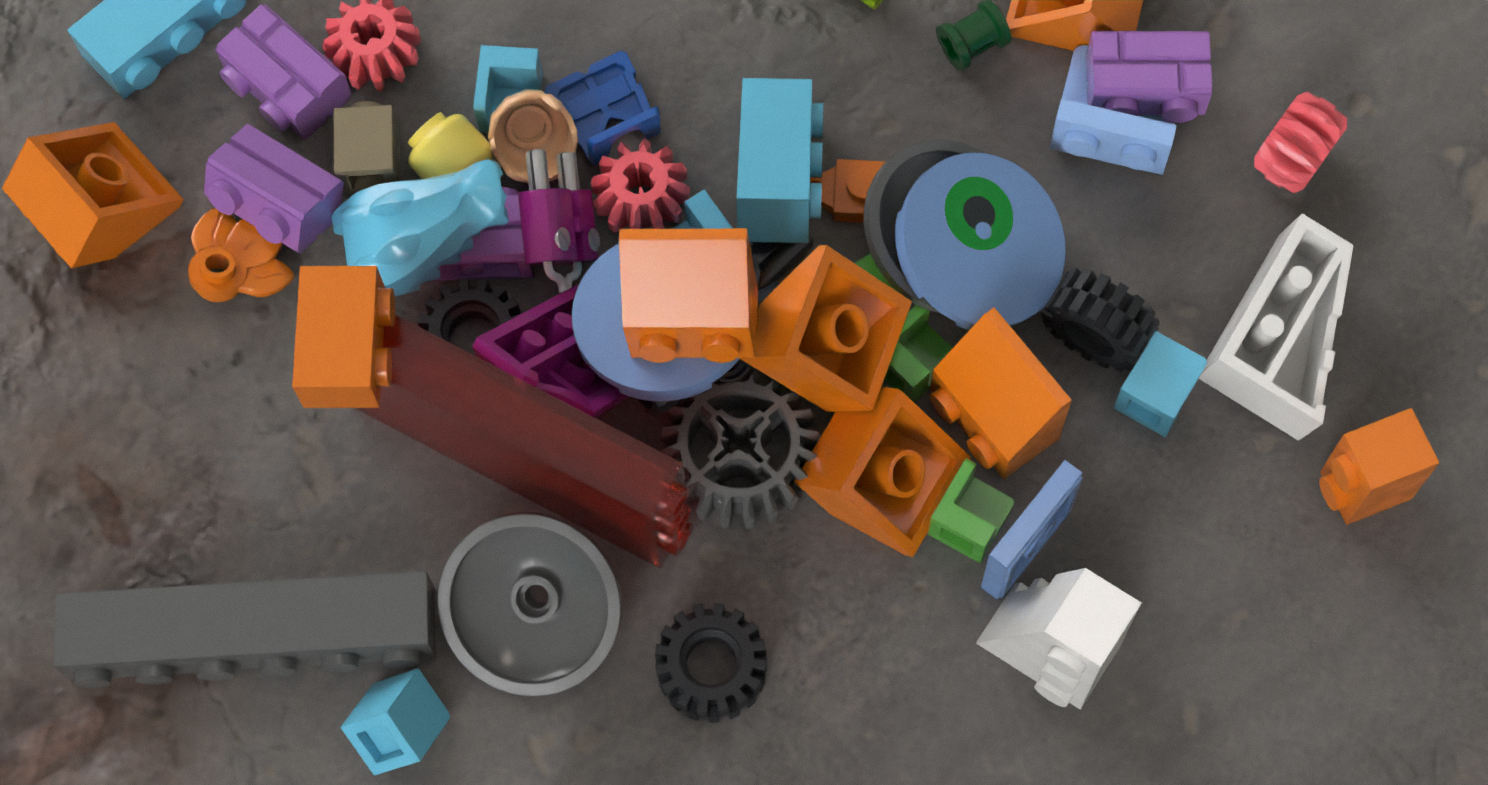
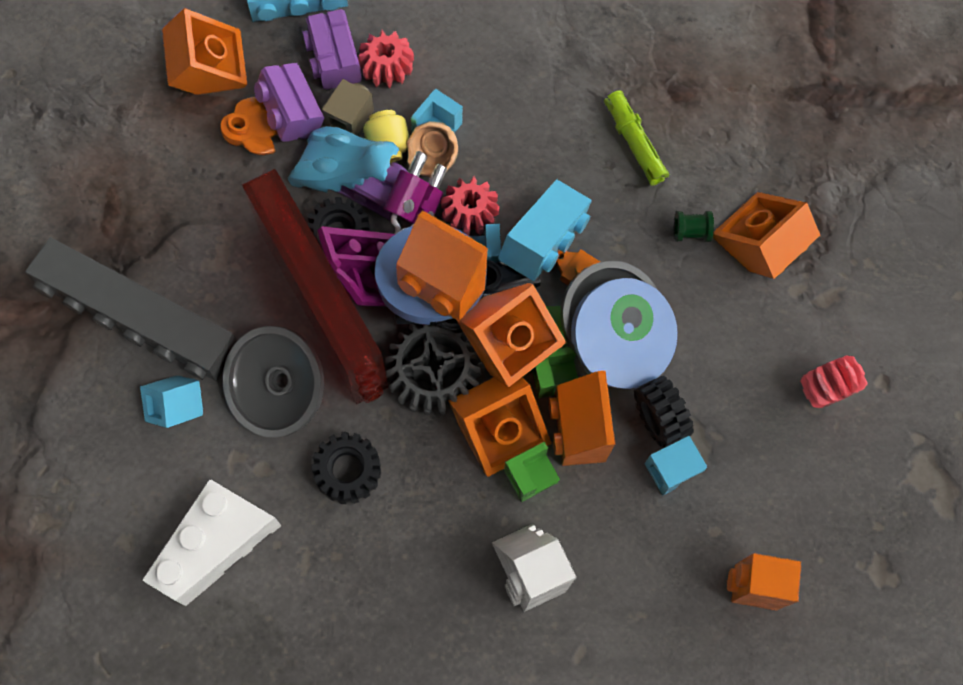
camera: 25 degrees right, 0 degrees up
(341, 337) = (249, 184): orange brick -> none
(602, 96) = (482, 150): blue piece -> none
(1031, 530) = (553, 501): medium blue tile -> none
(1105, 134) = (746, 308): light blue bracket -> none
(1150, 73) = (772, 299): medium lavender brick -> none
(1284, 328) = (761, 476): white wedge -> none

